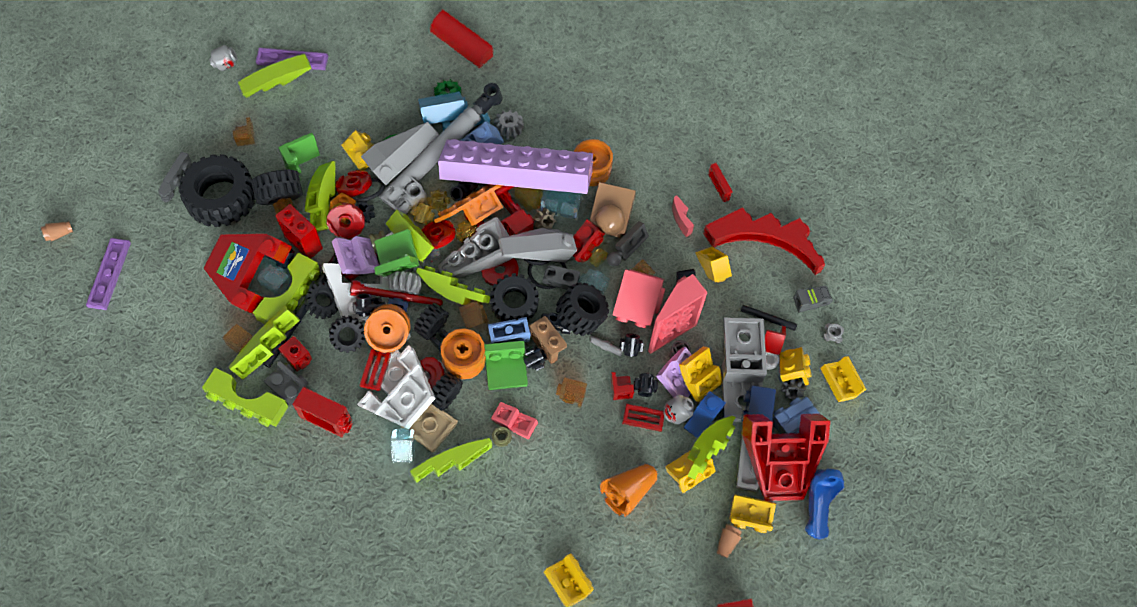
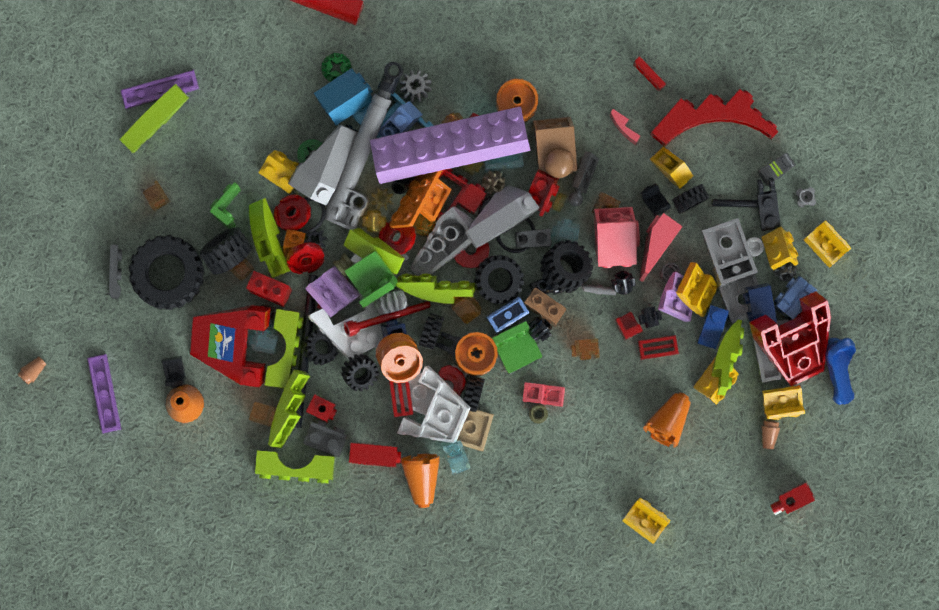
camera: 20 degrees left, 20 degrees up
(172, 304) = (191, 407): none -> orange cone
(180, 275) = (174, 371): none -> black bracket
(223, 58) = (91, 118): light grey head -> none
(359, 452) = (421, 477): none -> orange cone
(366, 304) = (368, 339): black plate -> none
(458, 456) = (509, 447): lime slope -> none
(678, 409) = (688, 331): light grey head -> none
(722, 292) = (690, 198): none -> black tyre
(775, 340) = (754, 231): red panel -> none
(795, 324) = (768, 206): none -> black hinge

